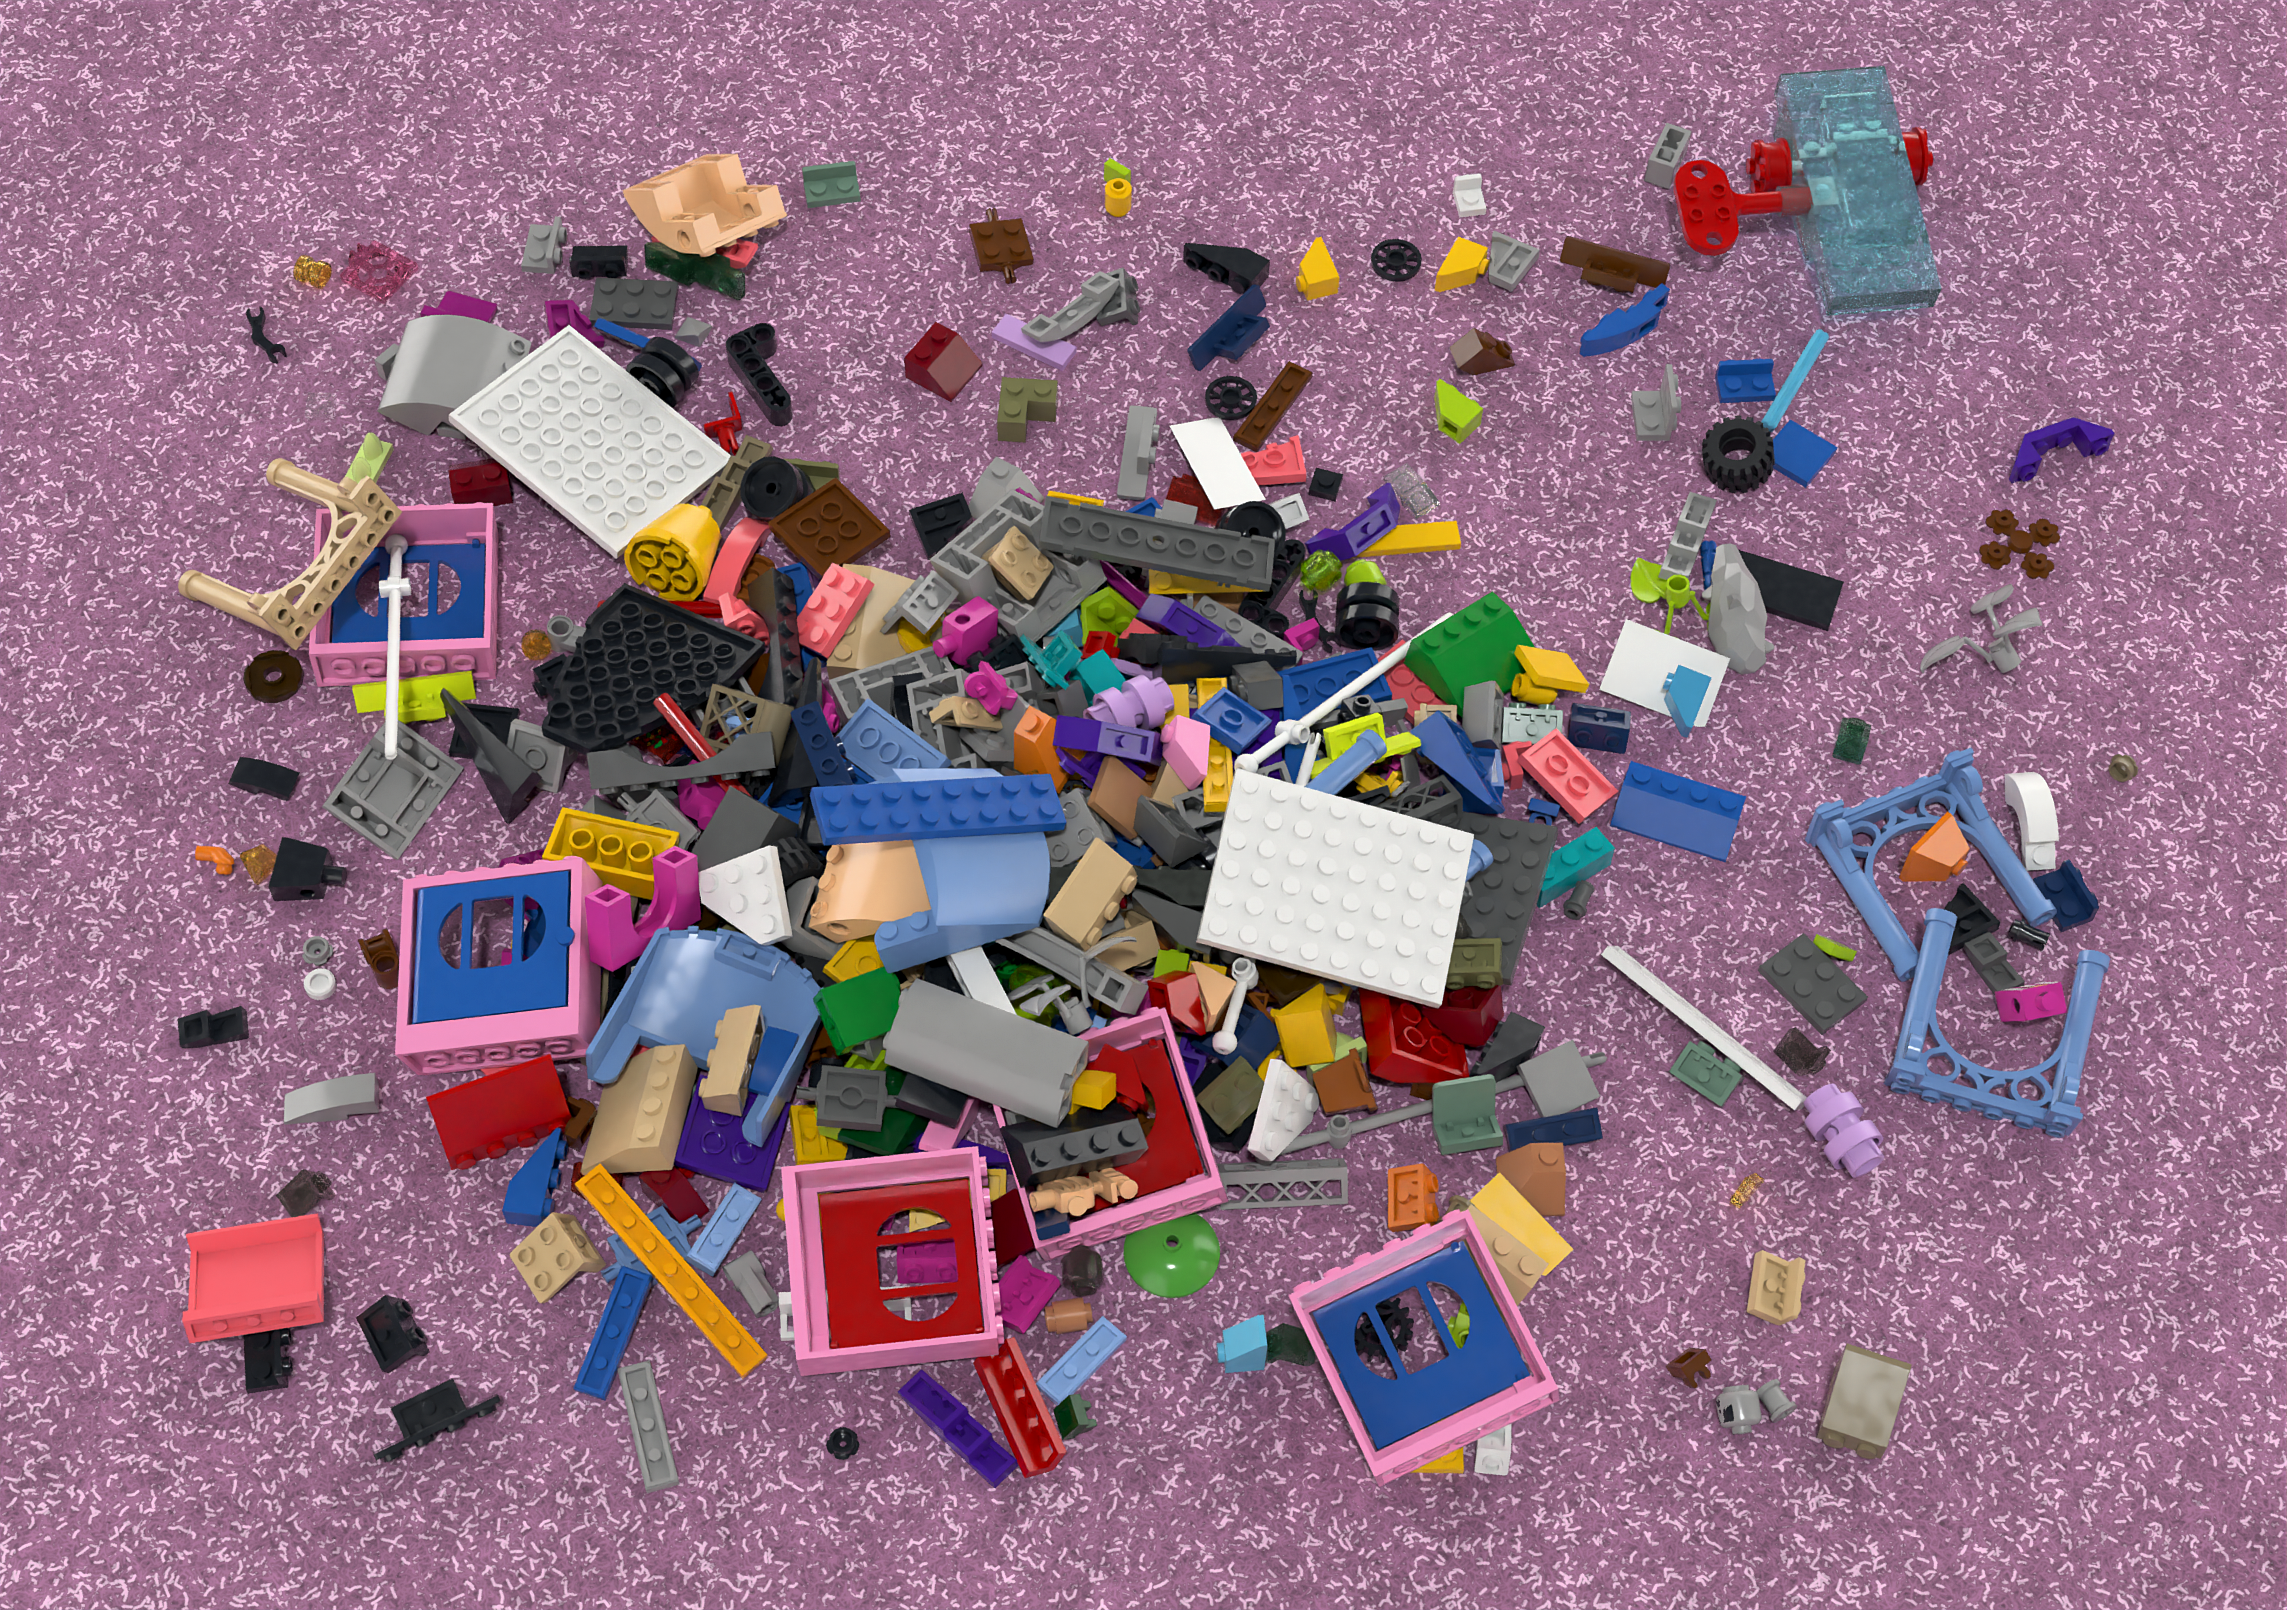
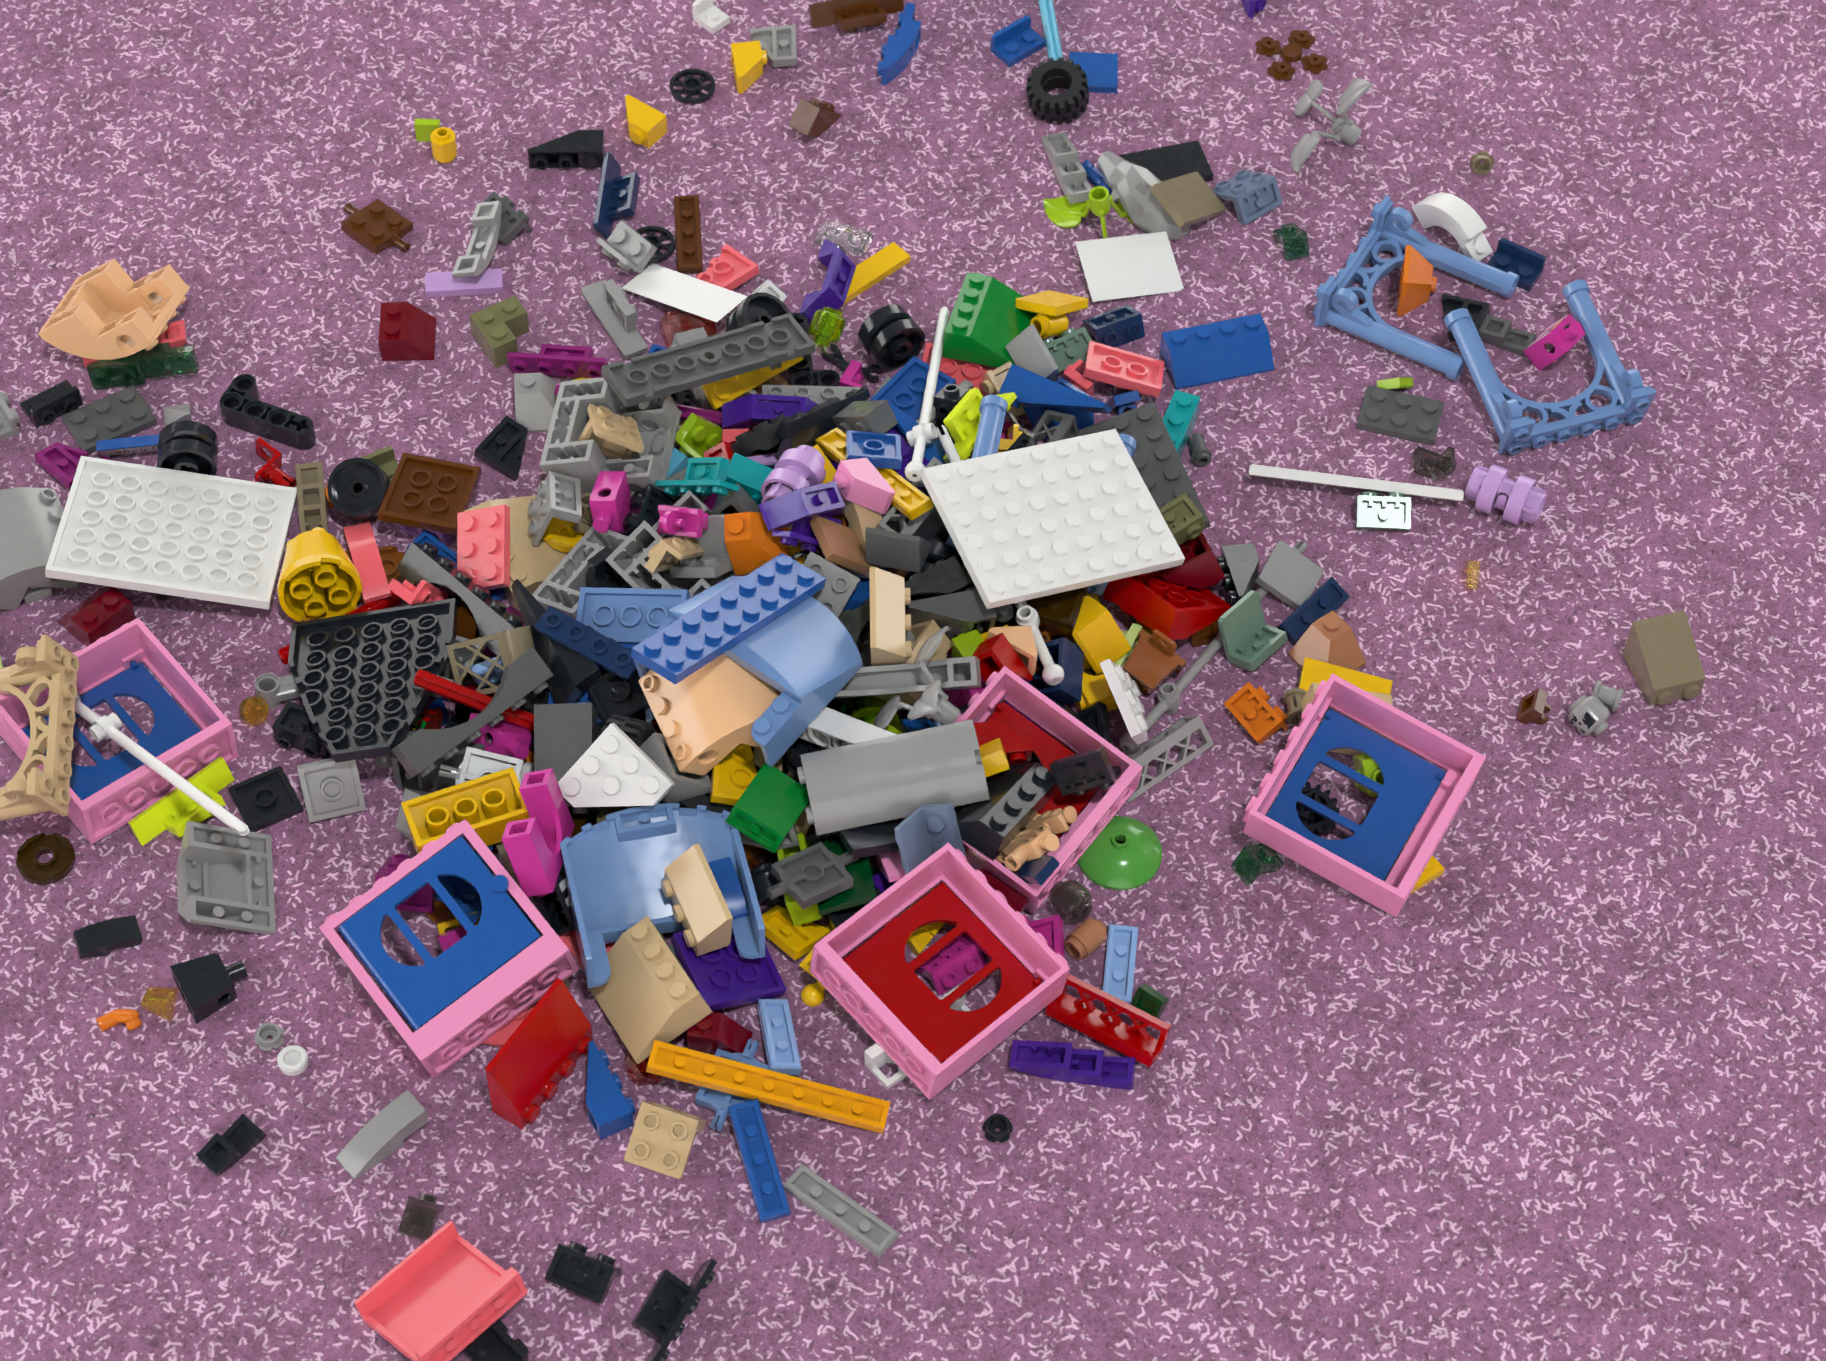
camera: 35 degrees left, 5 degrees down
(382, 955) = (326, 1008): reddish brown piece -> none
(501, 769) = (310, 813): black wedge -> none
(580, 1126) = (600, 1029): reddish brown bracket -> none
(751, 1282) = (826, 1058): light grey piece -> none
(831, 184) = (199, 250): sand green bracket -> none
(972, 1123) = (926, 832): none -> sand blue bracket
(1053, 465) = (558, 361): none -> magenta bracket
(1167, 1157) = (1084, 771): none -> black bracket
(1201, 389) = (628, 247): none -> light grey bracket
(1232, 1095) = (1086, 704): olive bracket -> none
(1244, 1346) = (1231, 877): medium azure slope -> none
(1325, 484) = (775, 267): black plate -> none
(1363, 572) = (859, 312): lime head -> none
(1455, 412) = (828, 167): lime slope -> none
(1494, 1452) = (1456, 844): white bracket -> none
(1656, 410) = (976, 91): light grey bracket -> none
(1684, 696) = (1160, 273): dark azure slope -> none
(1774, 638) = (1188, 199): none -> dark tan tile
(1776, 1288) = (1547, 623): tan bracket -> none
(1847, 666) = (1251, 194): none -> sand blue bracket
(2028, 934) = (1512, 303): black pin -> none

